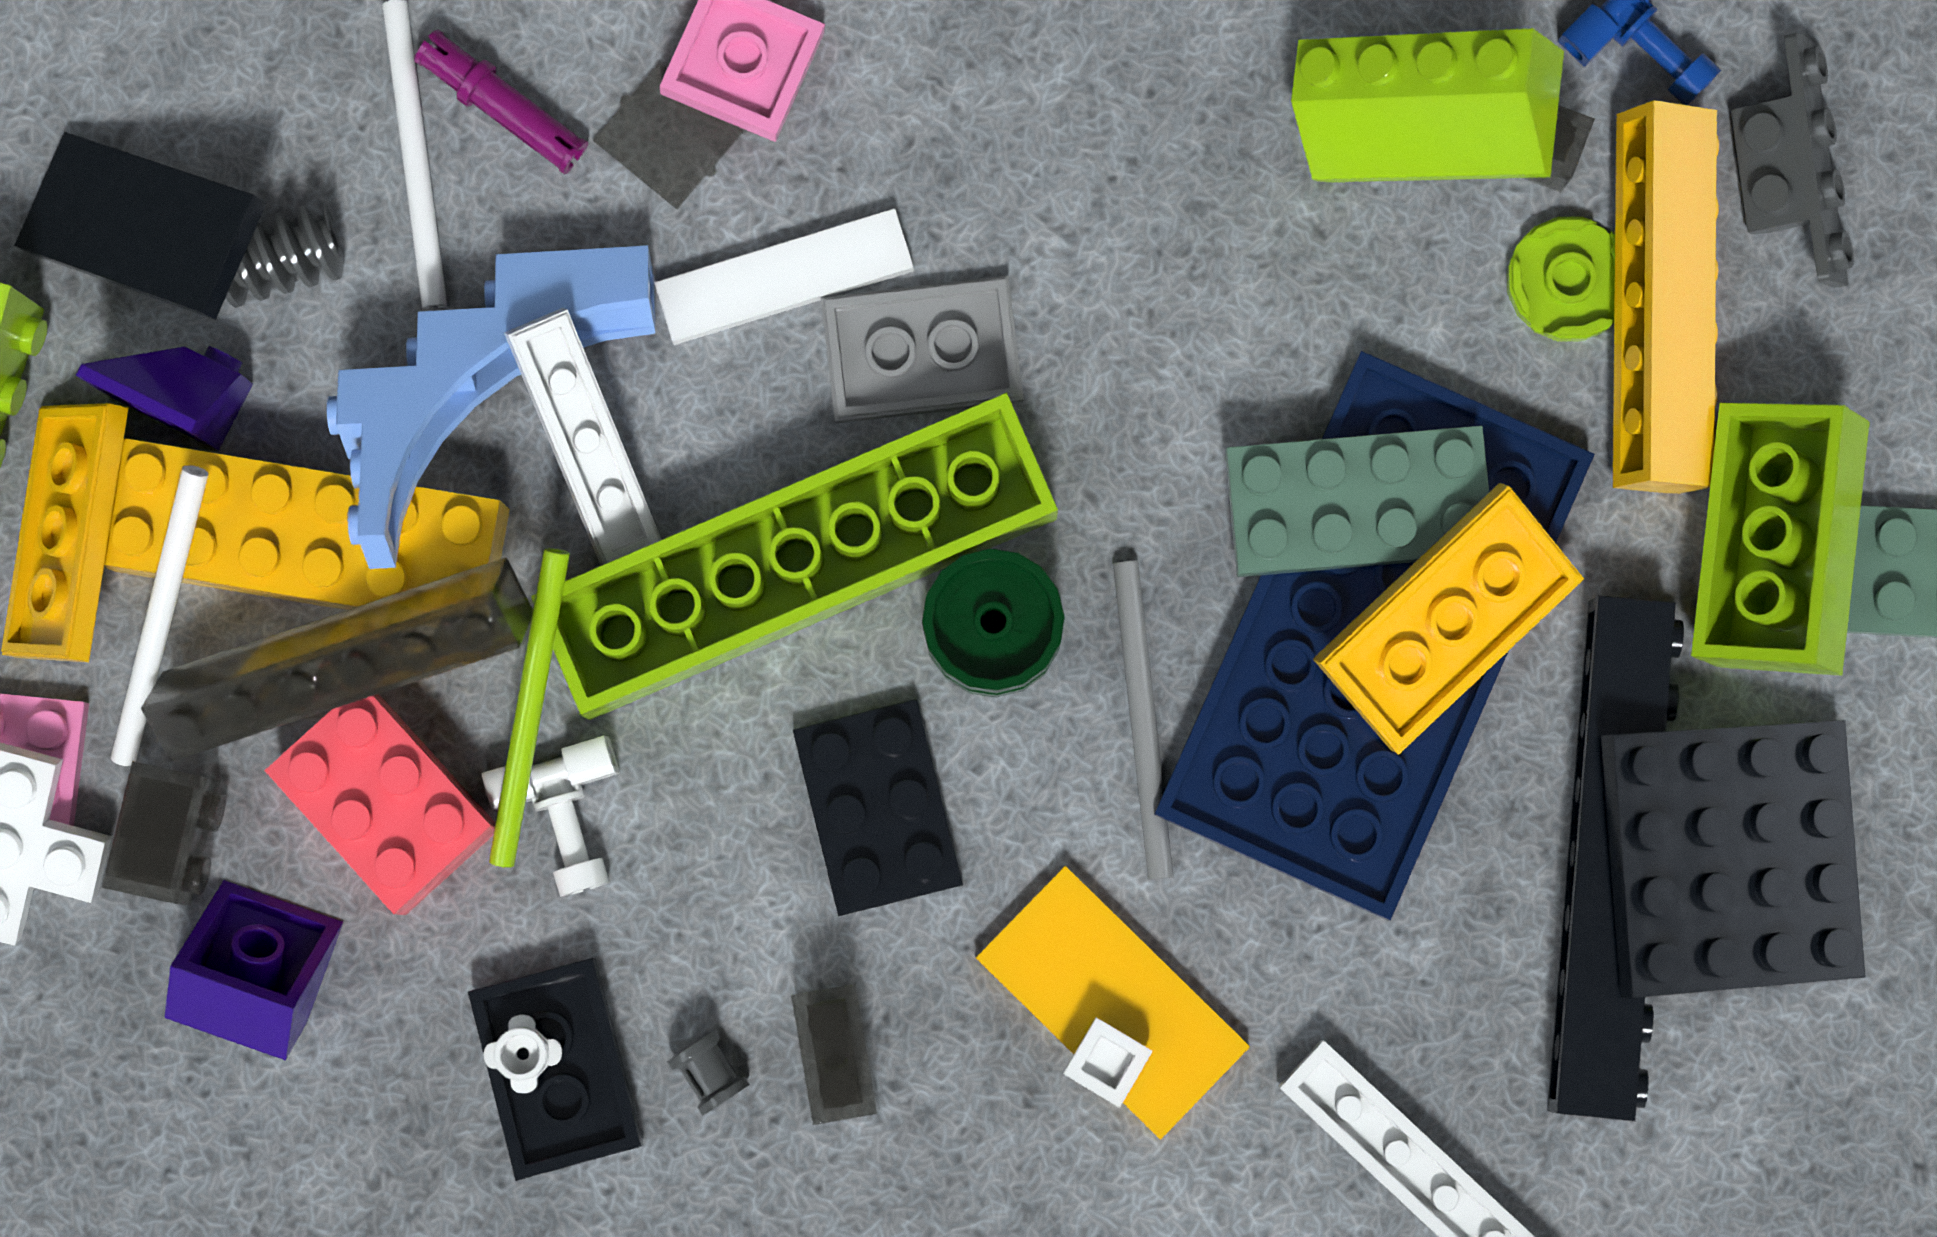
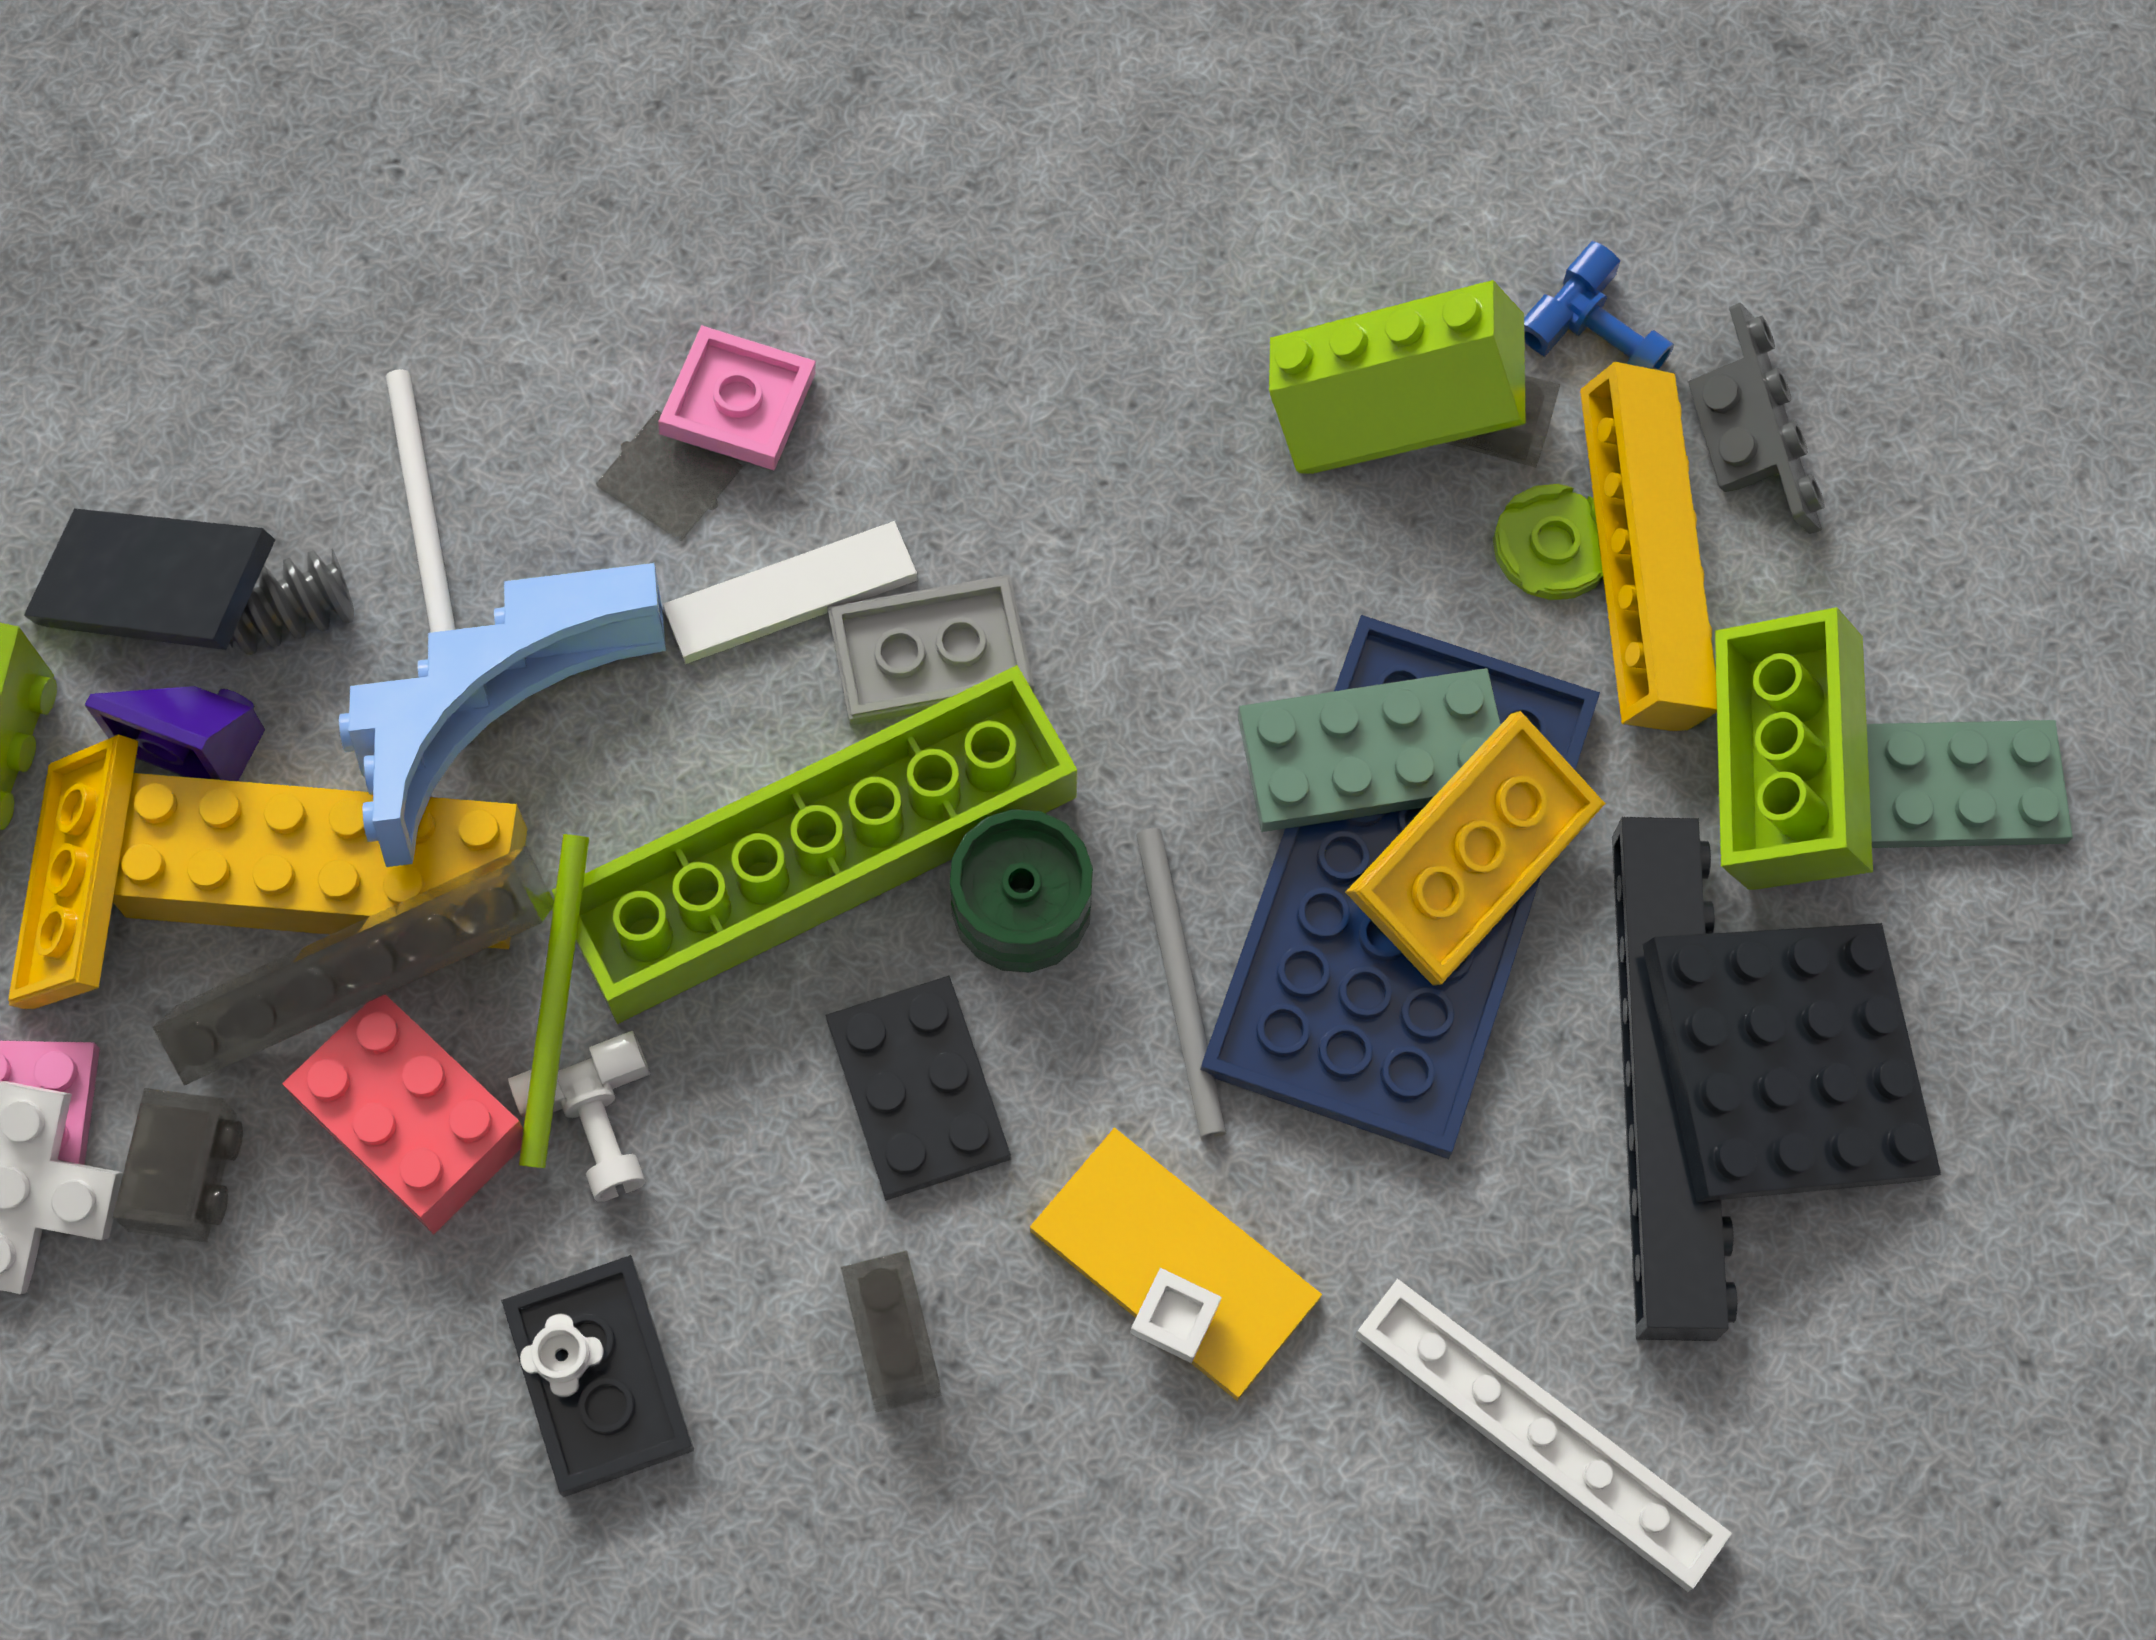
camera: 10 degrees left, 15 degrees down
(159, 612) = (171, 936): white piece -> none
(251, 969) = (270, 1298): dark purple slope -> none
(479, 85) = (486, 441): magenta pin -> none
(582, 435) = (595, 735): white tile -> none
(708, 1072) = (758, 1365): dark grey bush -> none

